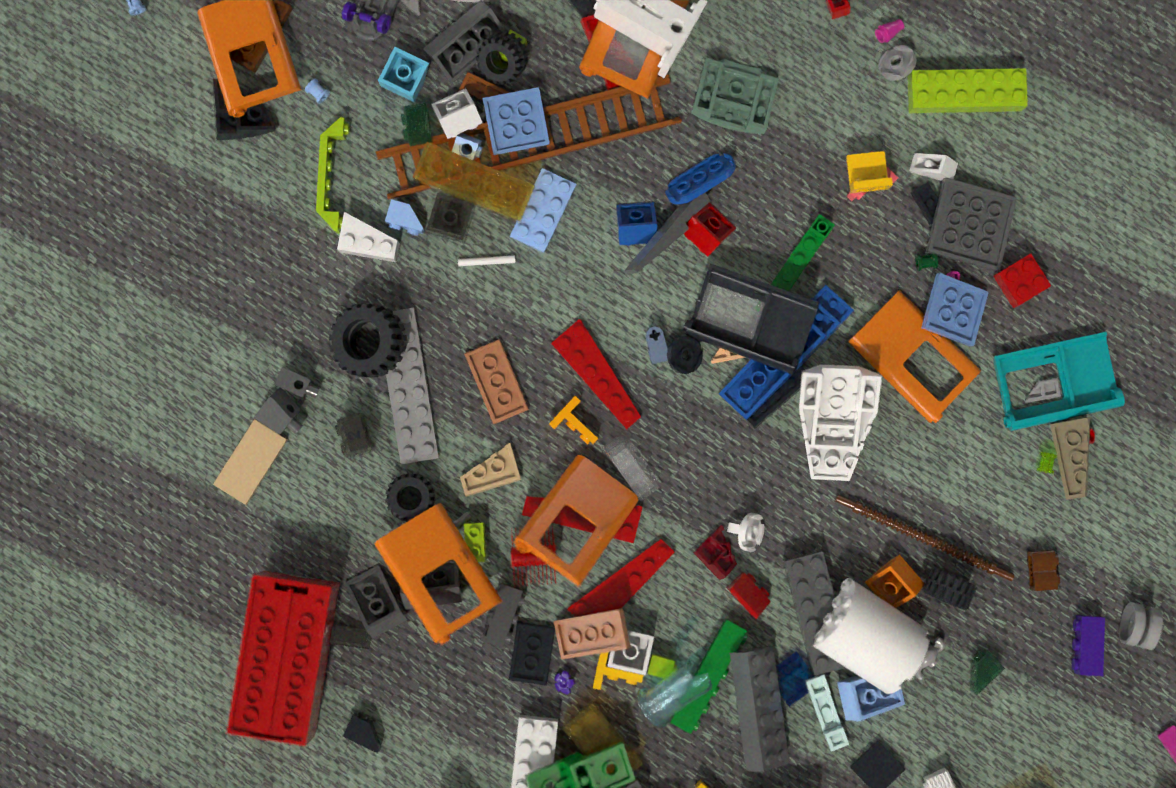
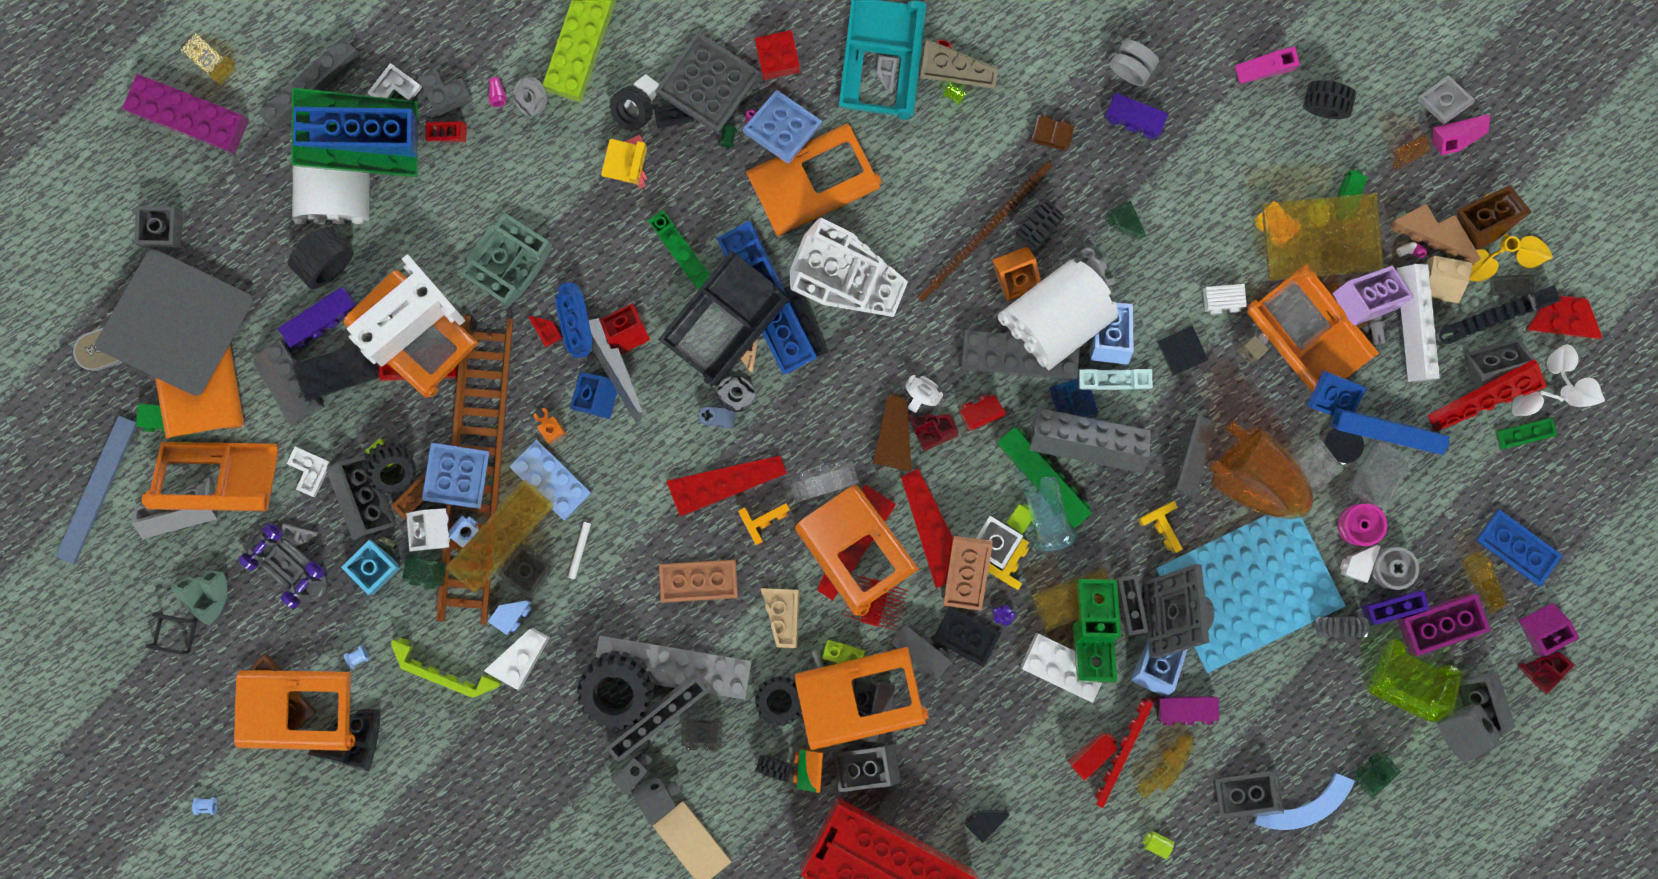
camera: 70 degrees left, 0 degrees up
(345, 514) = (774, 768): none -> black tyre
(355, 548) = (809, 769): none -> orange slope
(357, 389) = (658, 716): none -> dark grey brick
(430, 81) = (387, 545): none -> olive plate
(591, 192) = (550, 428): none -> orange brick
(681, 157) = (546, 330): none -> red tile
(695, 519) = (894, 438): none -> reddish brown slope
(930, 169) = (620, 114): none -> black tyre

